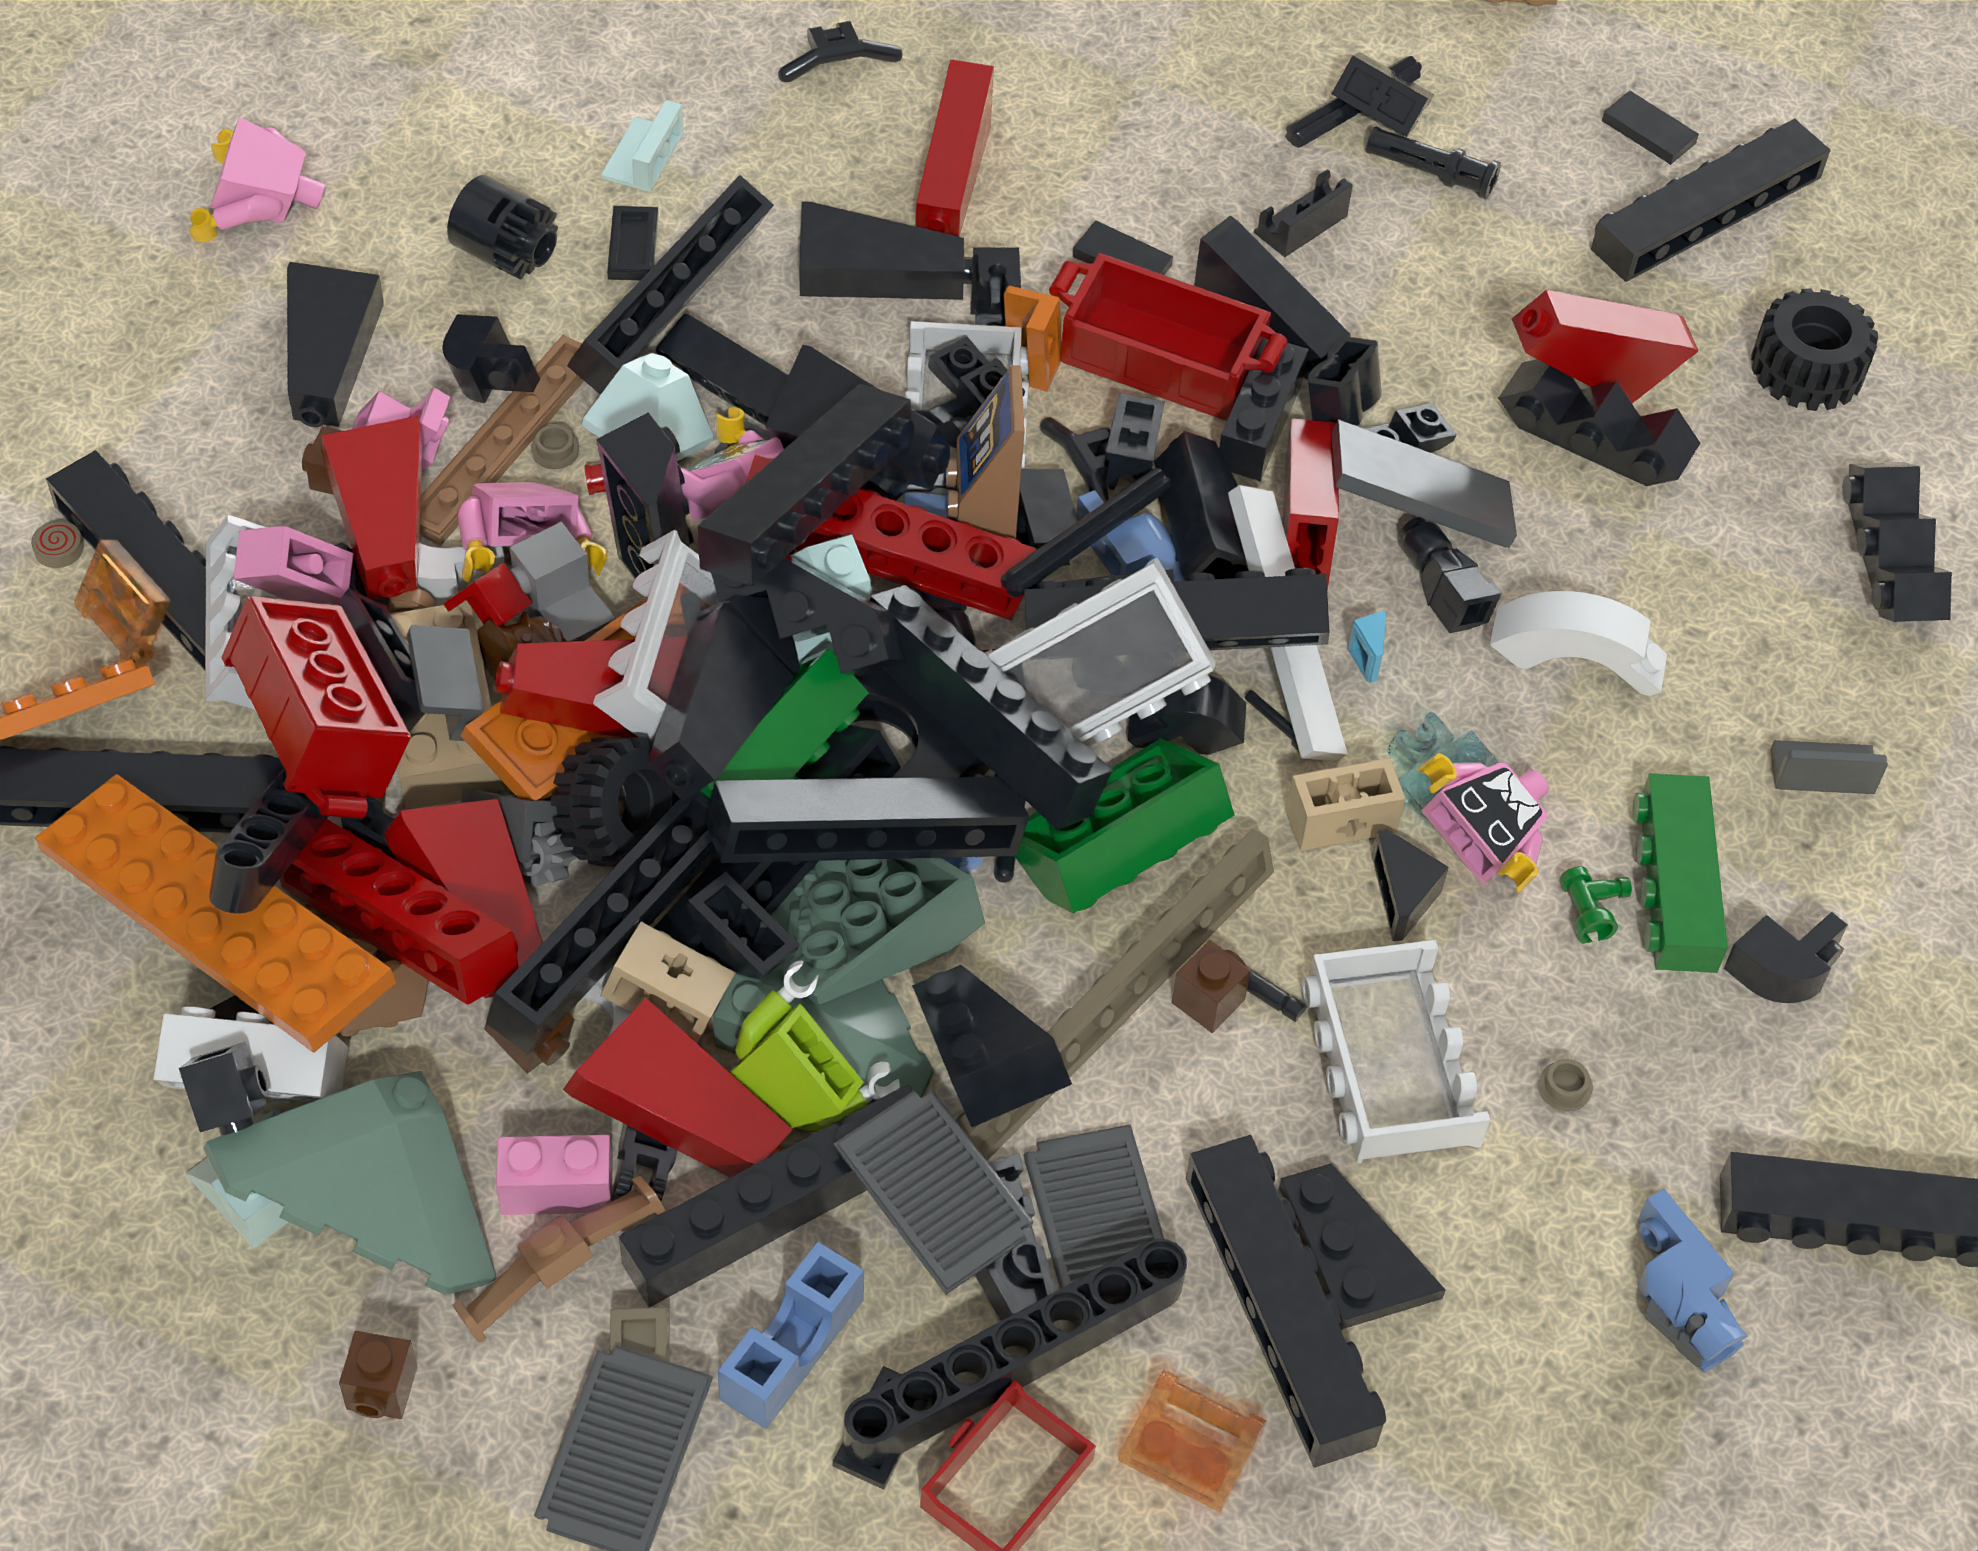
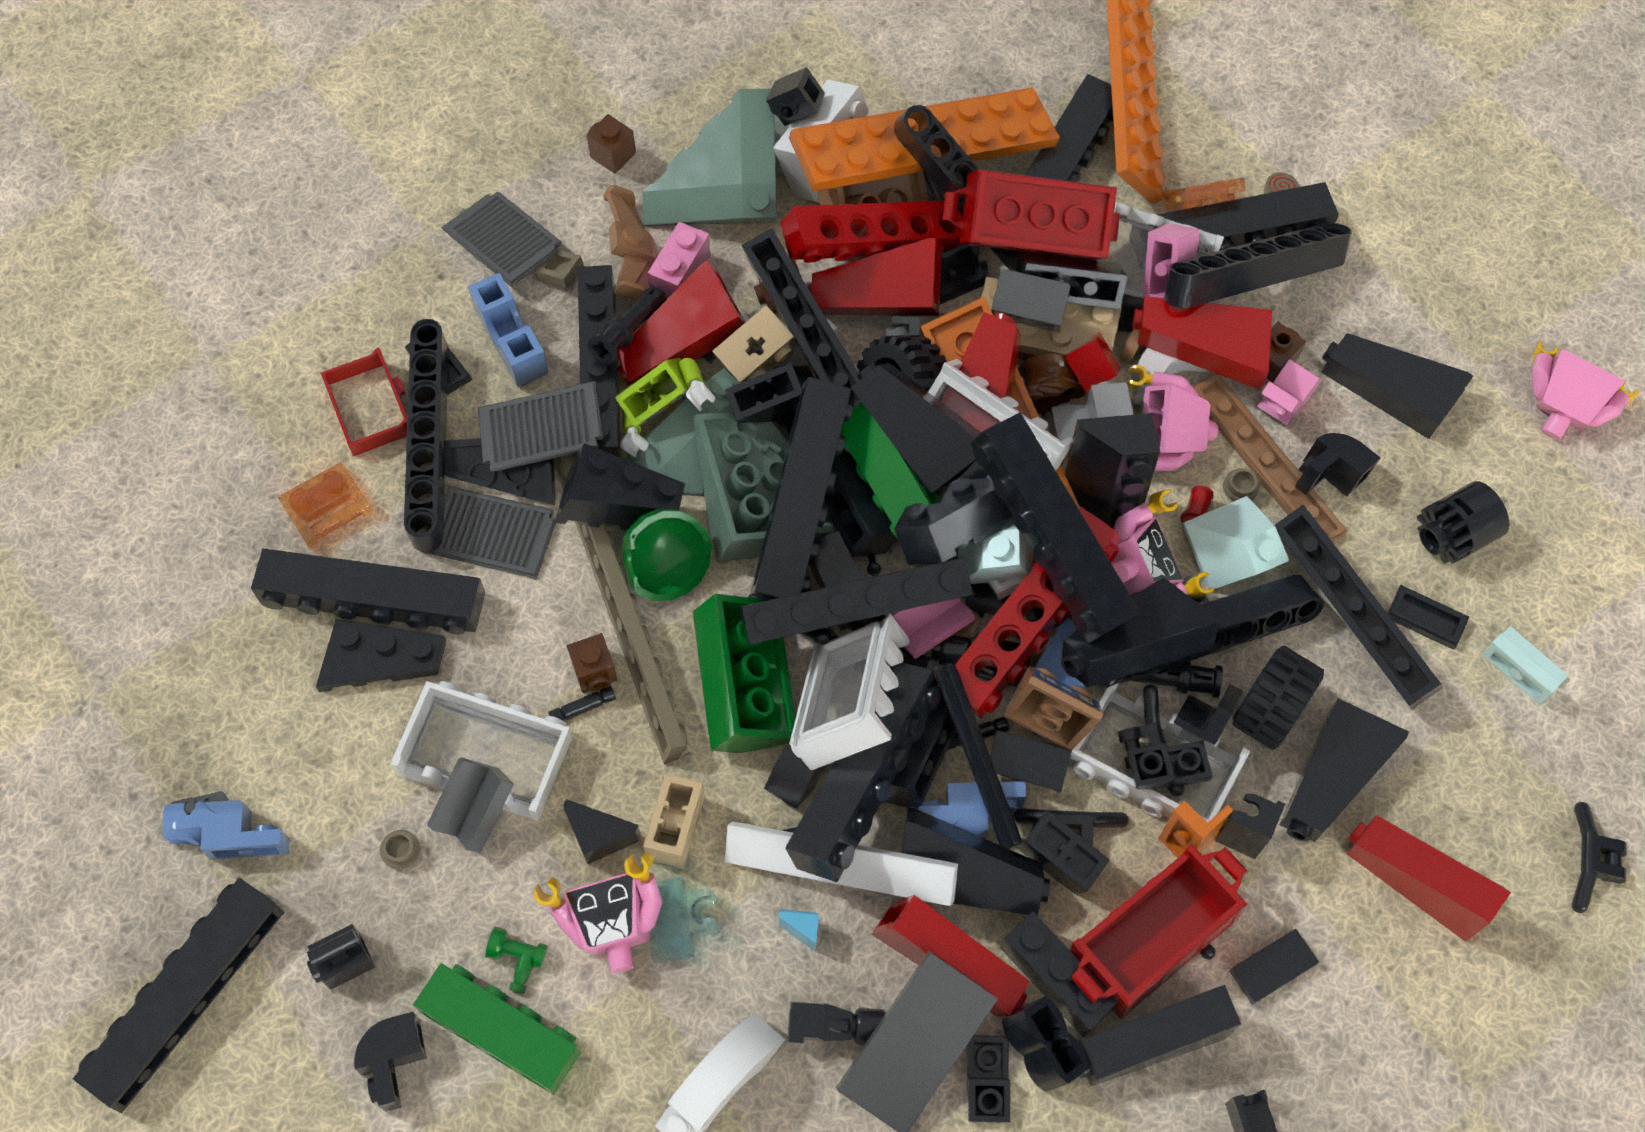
camera: 120 degrees right, 10 degrees up
(242, 486) = (1256, 265): none -> black beam
(738, 1148) = (620, 331): none -> black pin
(837, 306) = (1278, 697): none -> black tyre
(892, 357) = (1206, 720): none -> black panel
(1023, 968) = (666, 554): none -> green cylinder
(1469, 1003) = (471, 803): none -> dark grey panel
(1729, 1065) = (339, 957): none -> black brick

